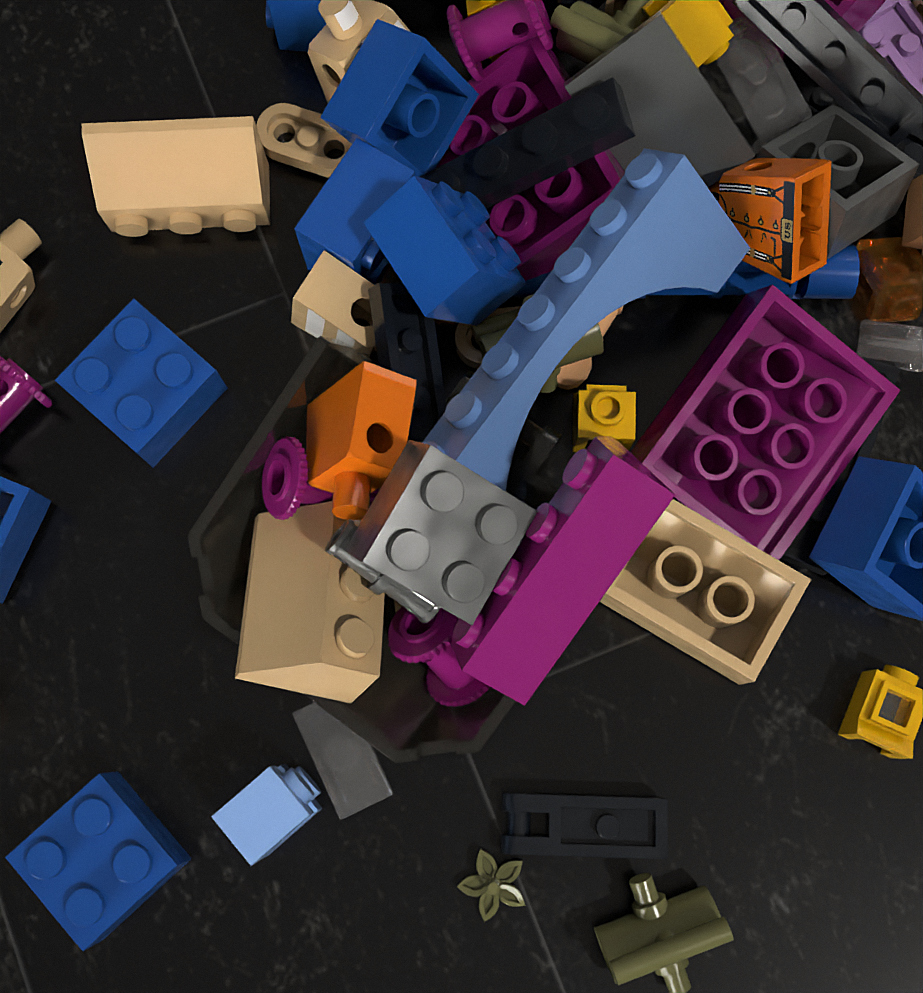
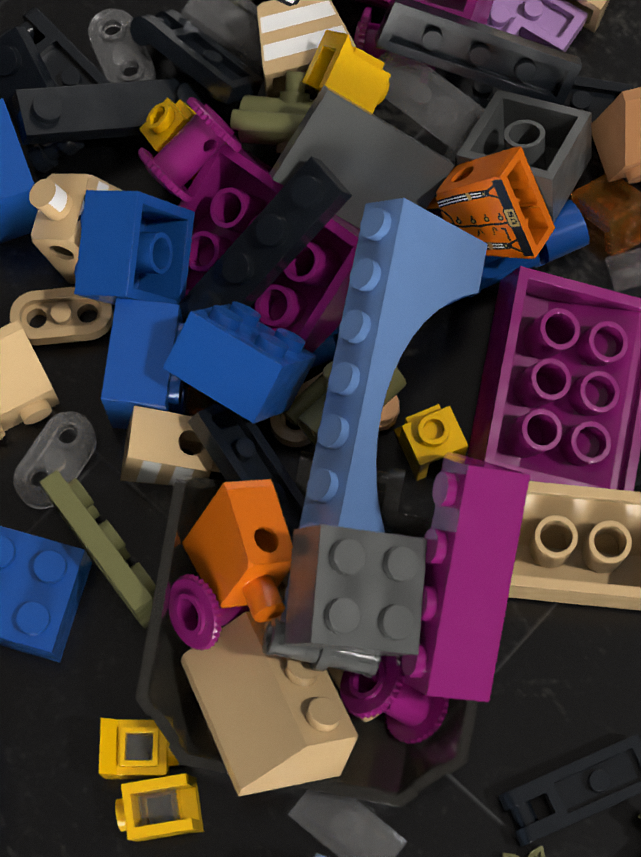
camera: 25 degrees left, 5 degrees down
(169, 580) = (133, 750): none -> yellow window
(174, 649) = (159, 808): none -> yellow window
(234, 376) = (102, 544): none -> olive plate
(239, 276) = (51, 454): none -> clear plate

